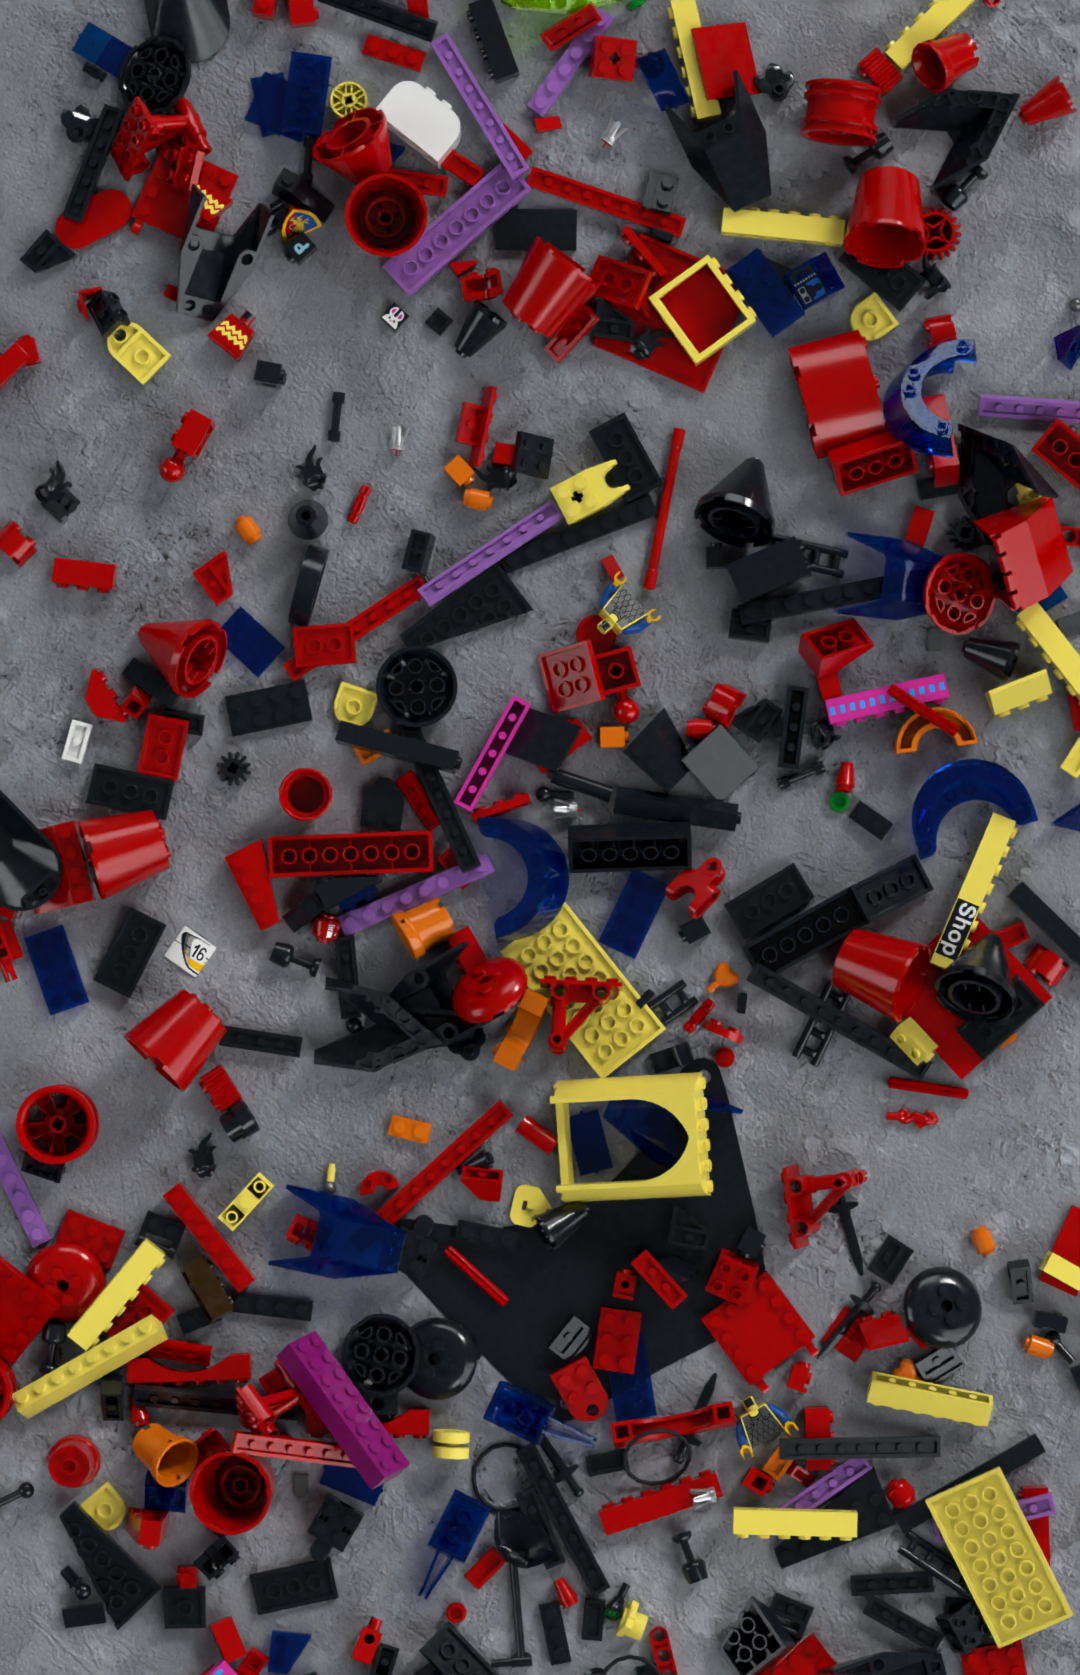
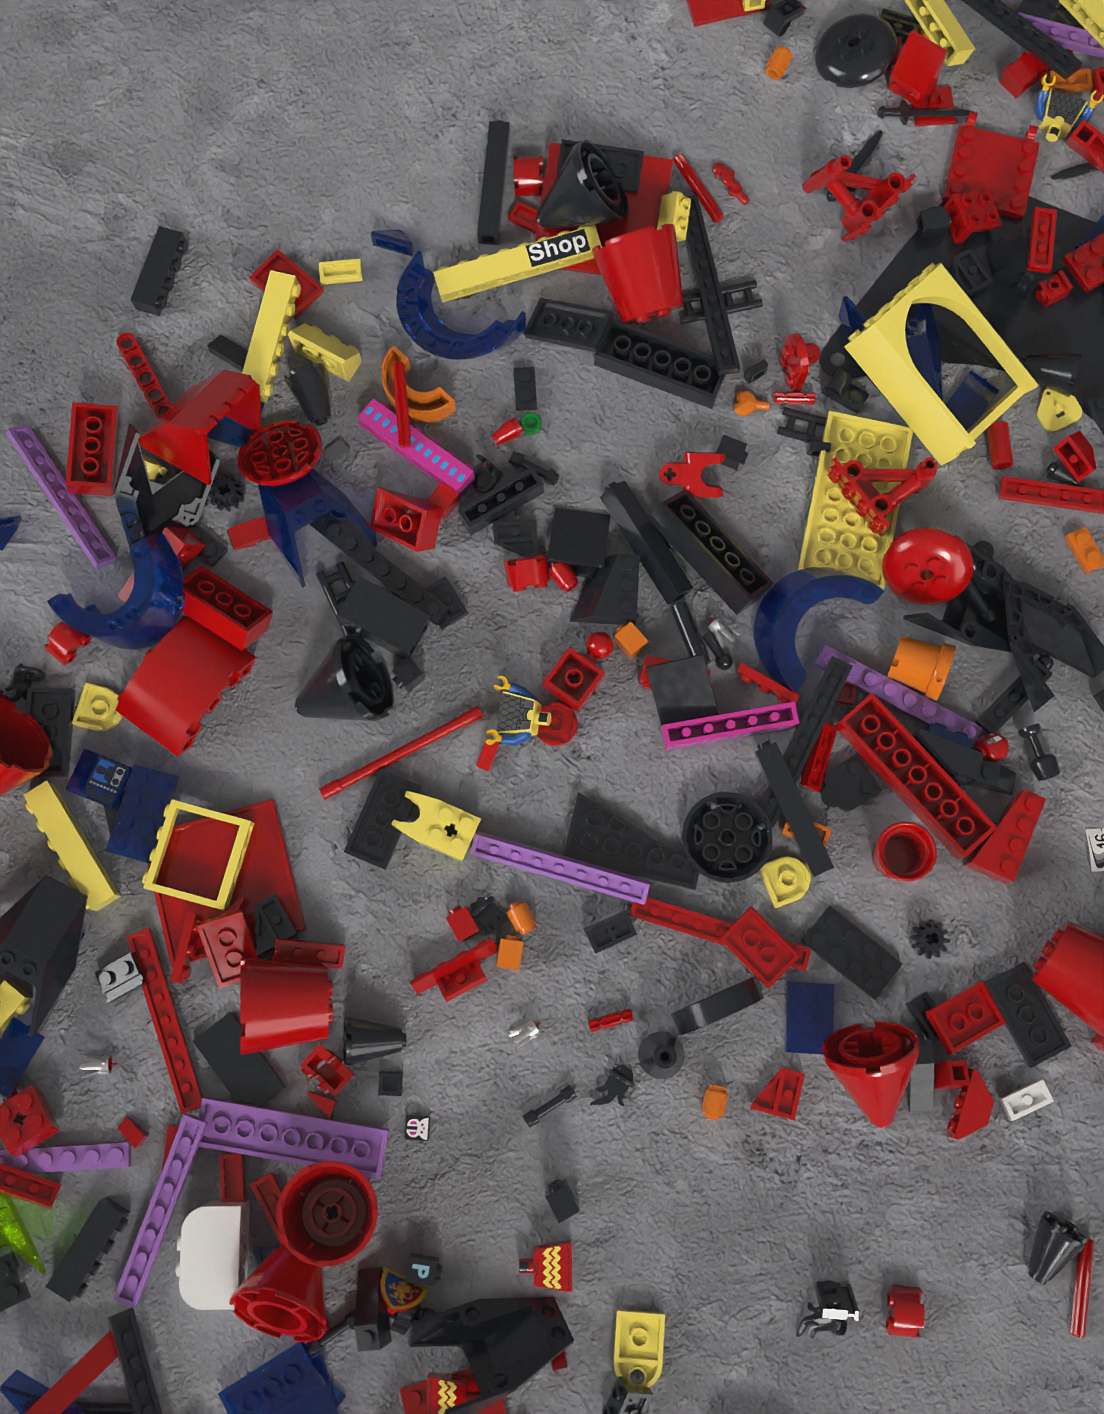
camera: 135 degrees left, 10 degrees down
(84, 575) = (879, 1220): red brick -> none
(187, 442) = (683, 1226): red brick -> none
(346, 92) = (240, 1349): light yellow wheel -> none
(394, 53) = (171, 1334): red plate -> none
(472, 954) = (897, 625): red brick -> none
(522, 1030) = (949, 516): orange brick -> none
(532, 455) = (444, 900): black plate -> none
(571, 676) = (609, 711): red plate -> none
(579, 534) = (480, 806): black plate -> none
(633, 913) = (760, 509): clear blue plate -> none
(645, 344) = (269, 881): black piece -> none
(662, 236) = (158, 944): black tile -> none
(769, 901) = (657, 414): black plate -> none
(799, 1376) = (1000, 113): red brick -> none
(890, 1259) = (852, 116): black plate -> none

